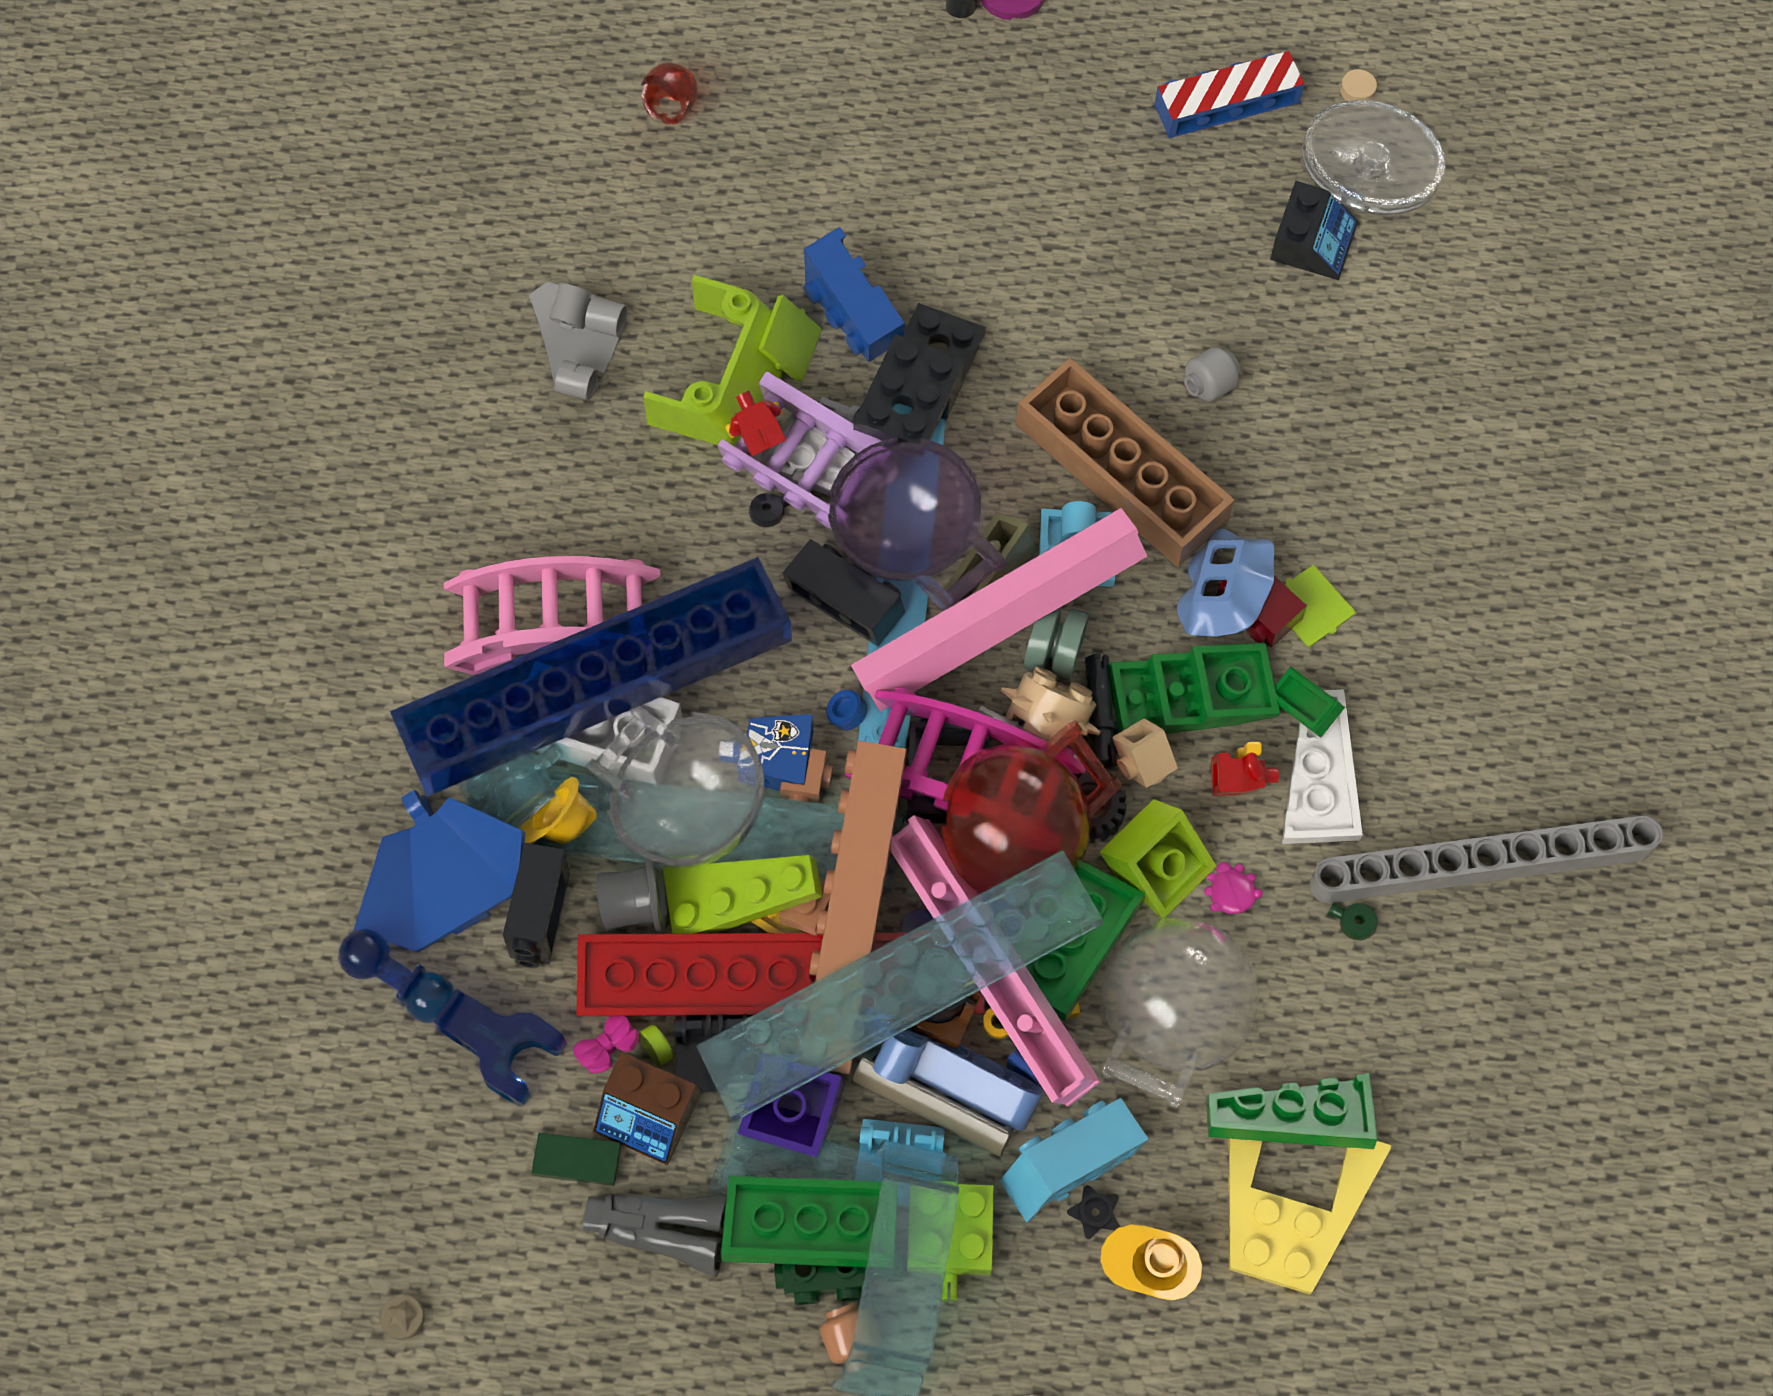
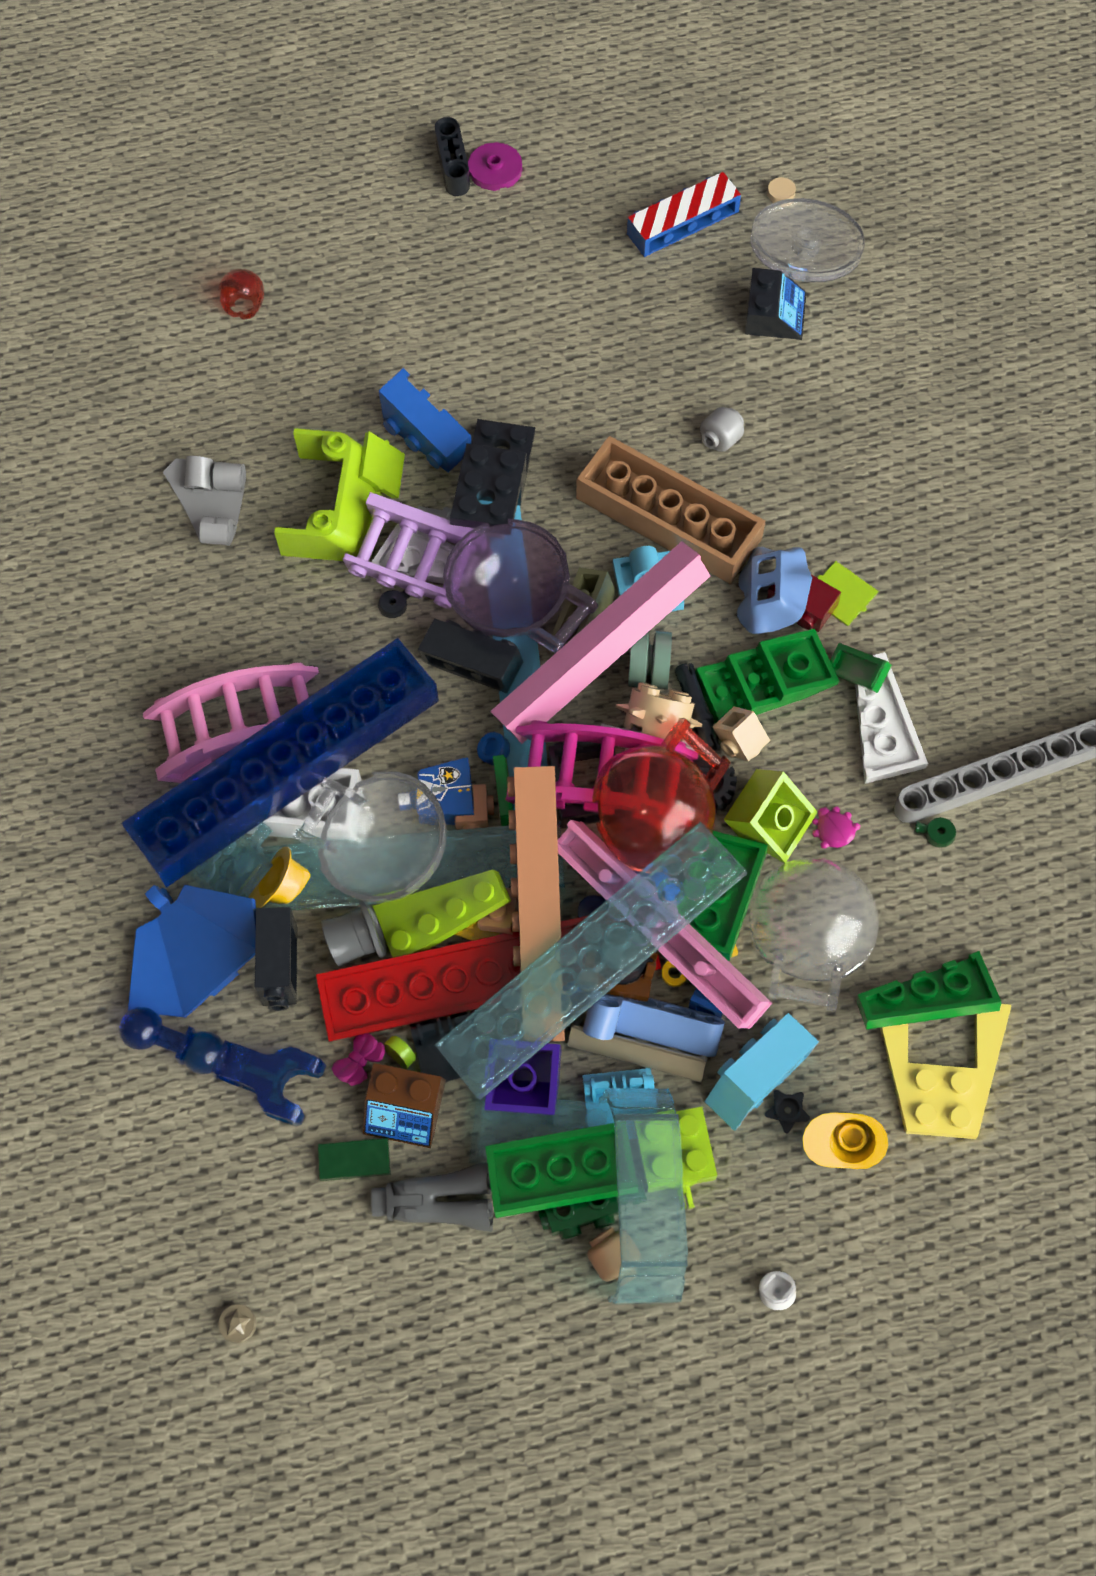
camera: 10 degrees left, 0 degrees up
(756, 424) = (371, 535): red piece -> none
(848, 741) = (501, 775): none -> green tile
(1242, 773) = (820, 733): red piece -> none

